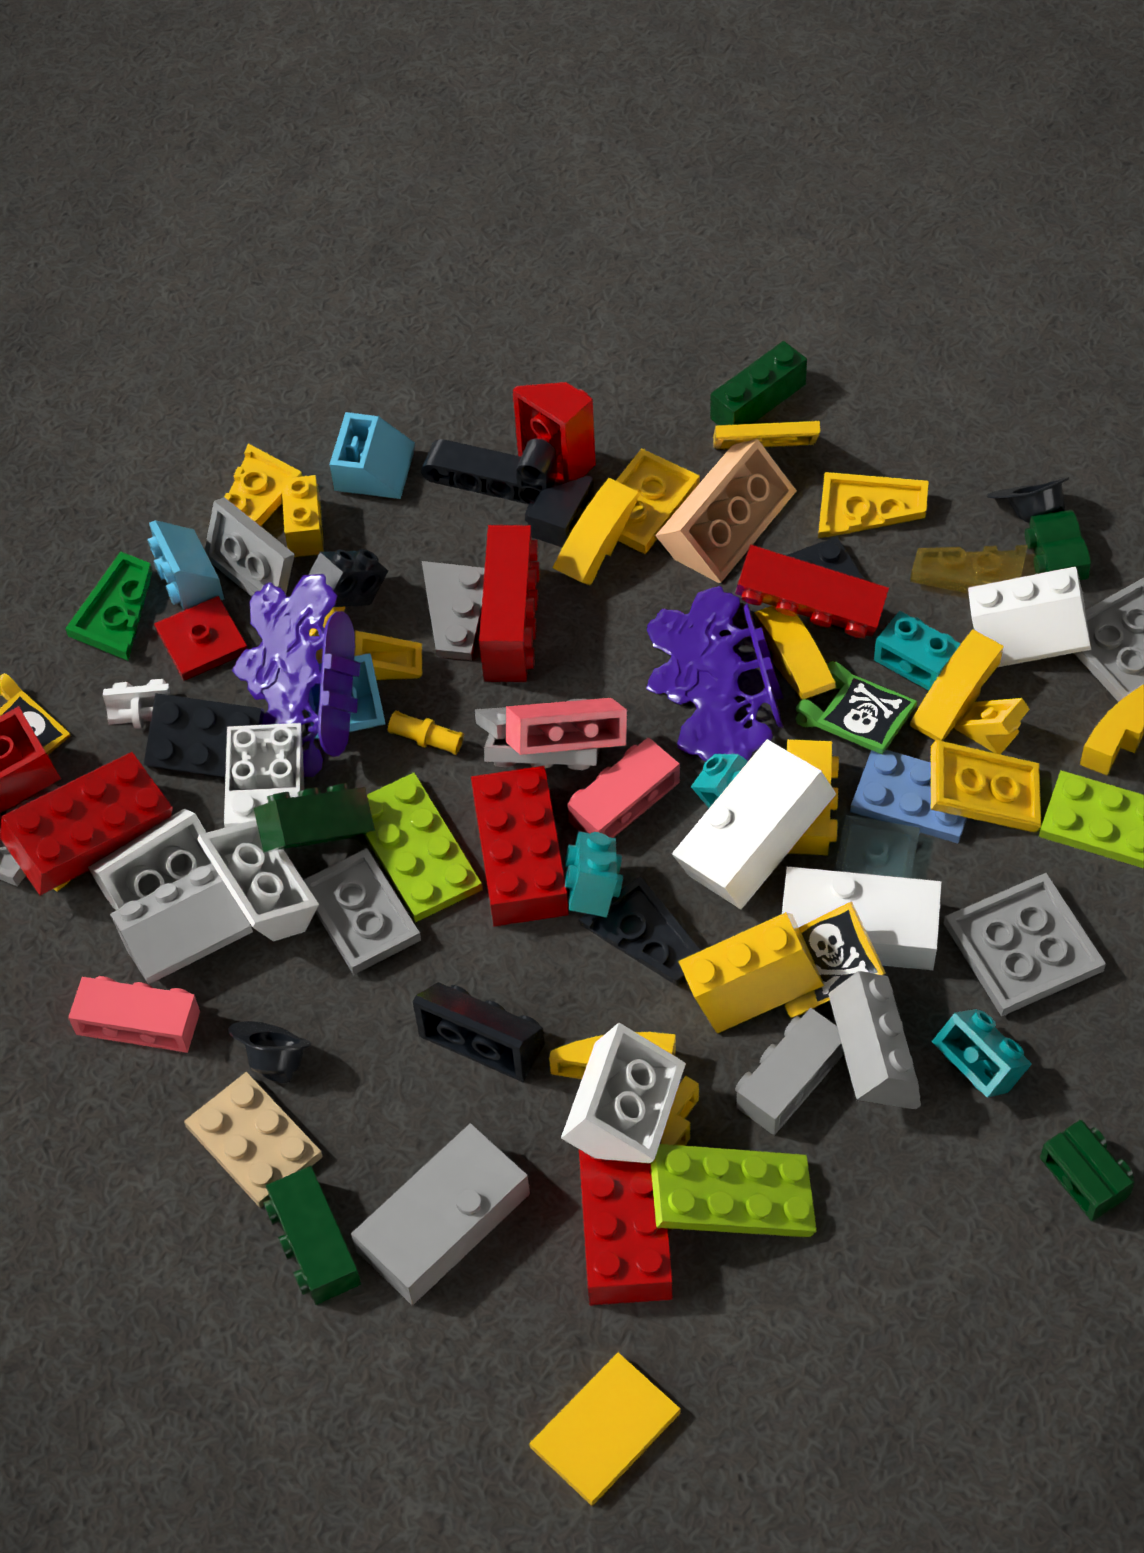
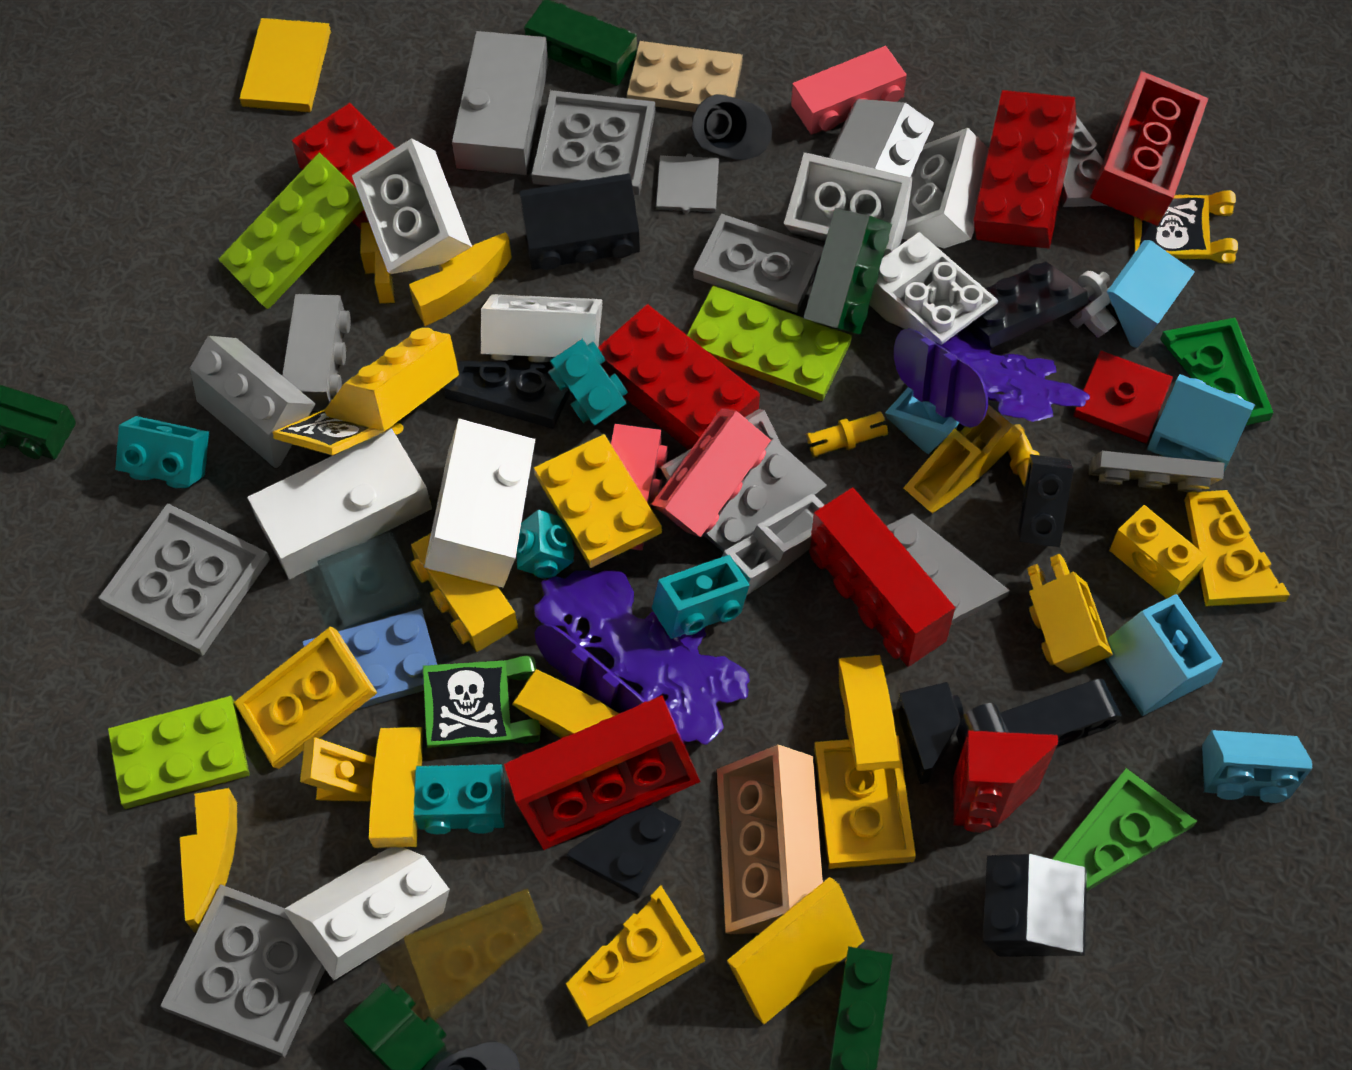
camera: 140 degrees right, 5 degrees up
(109, 662) = (1147, 290): none -> medium azure slope
(346, 1033) = (687, 183): none -> light grey piece
(383, 365) = (1253, 765): none -> medium azure slope
(390, 1119) = (593, 138): none -> light grey plate
(406, 512) = (1067, 618): none -> yellow hinge
(490, 395) = (1123, 829): none -> bright green wing
(550, 683) = (775, 542): none -> light grey slope
(581, 970) = (537, 325): none -> white slope
(601, 370) = (1034, 906): none -> black slope
(643, 669) = (700, 596): none -> teal brick
(663, 774) = (597, 500): none -> yellow plate

